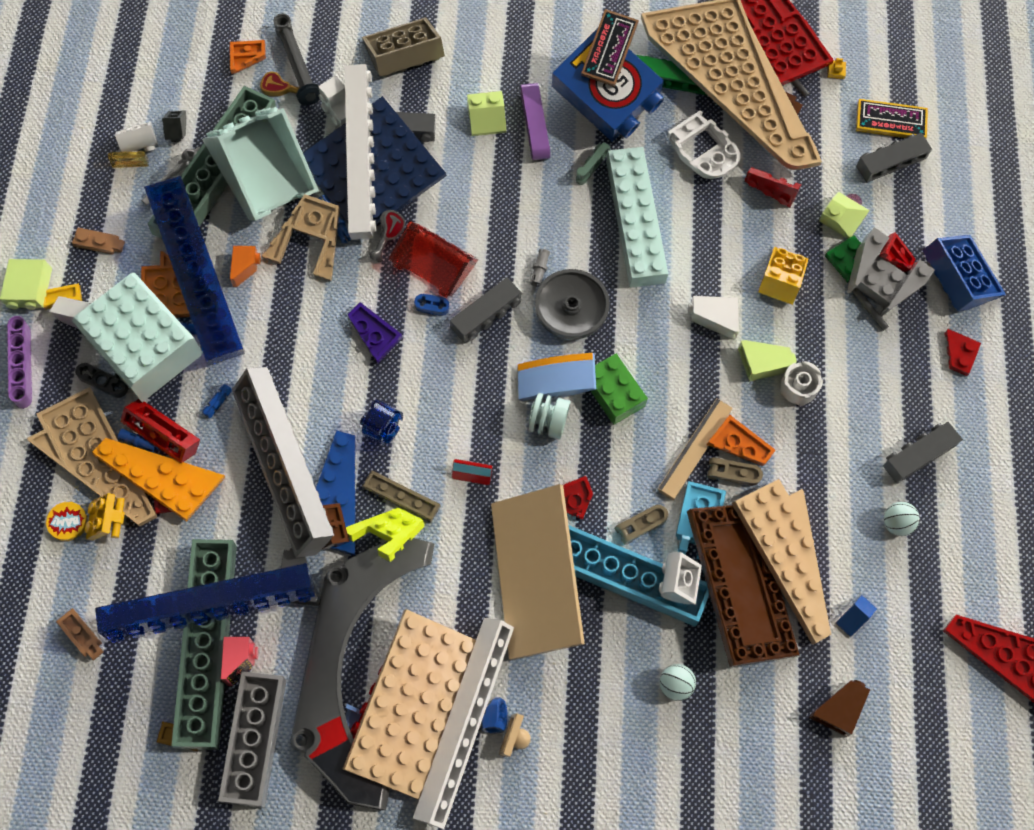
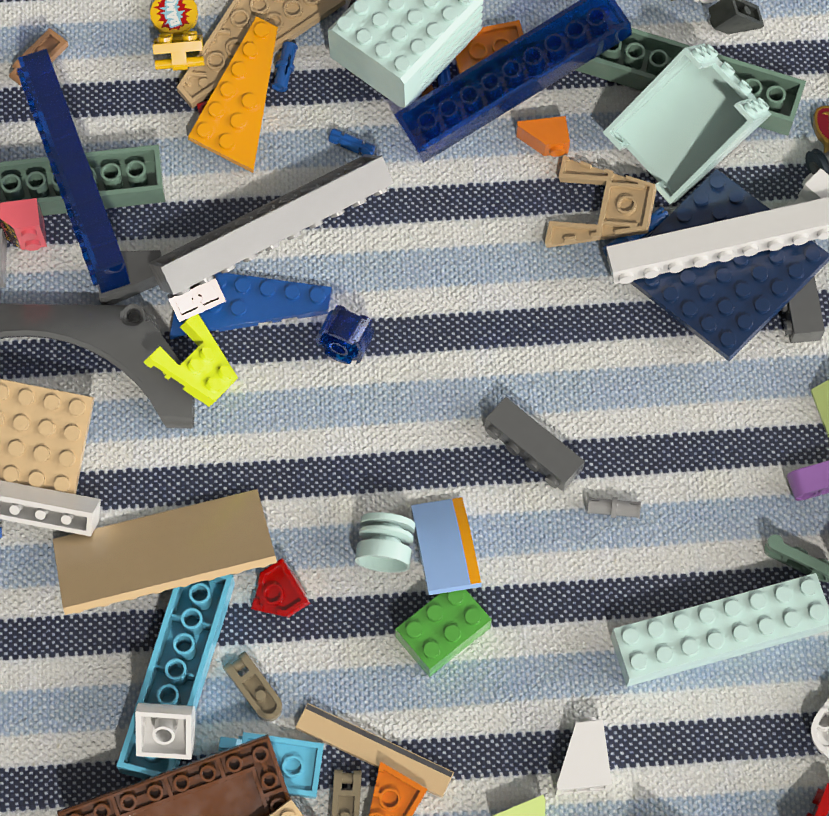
camera: 85 degrees right, 0 degrees up
(160, 430) = (286, 116): red brick -> none
(187, 156) = (690, 39): light grey piece -> none
(374, 331) = (477, 311): dark purple wing -> none
(392, 227) = (638, 306): dark grey piece -> none
(401, 496) = (254, 380): dark tan tile -> none
(432, 258) = (602, 365): clear red windscreen -> none
(432, 304) = (537, 376): blue beam -> none
(471, 472) = (297, 460): red slope -> none
(572, 304) = (561, 554): dark grey dish -> none
(677, 682) = (37, 750): light aqua piece -> none

